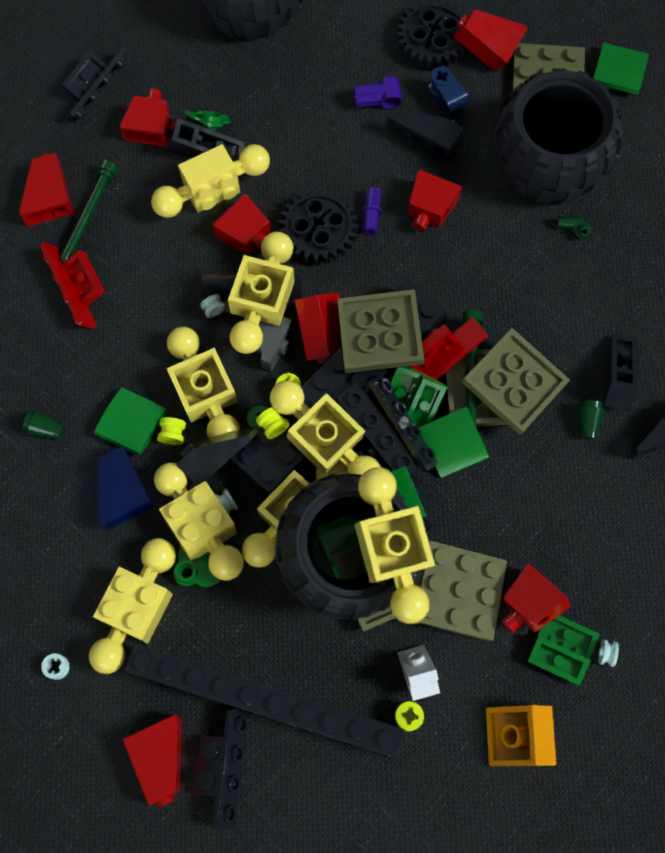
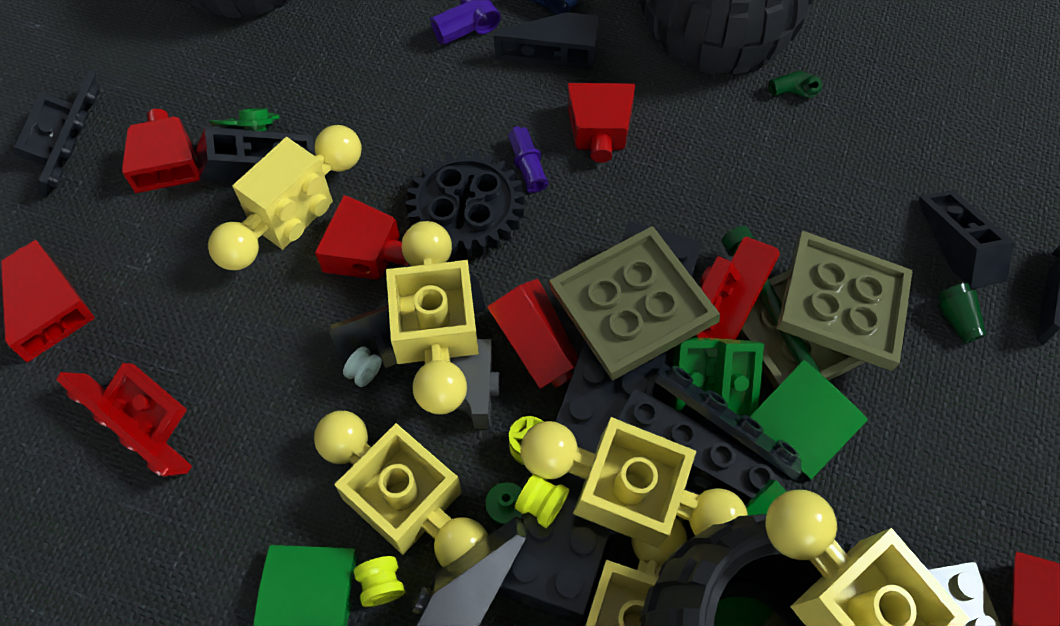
camera: 25 degrees left, 10 degrees down
(107, 172) = (125, 241): dark green piece -> none

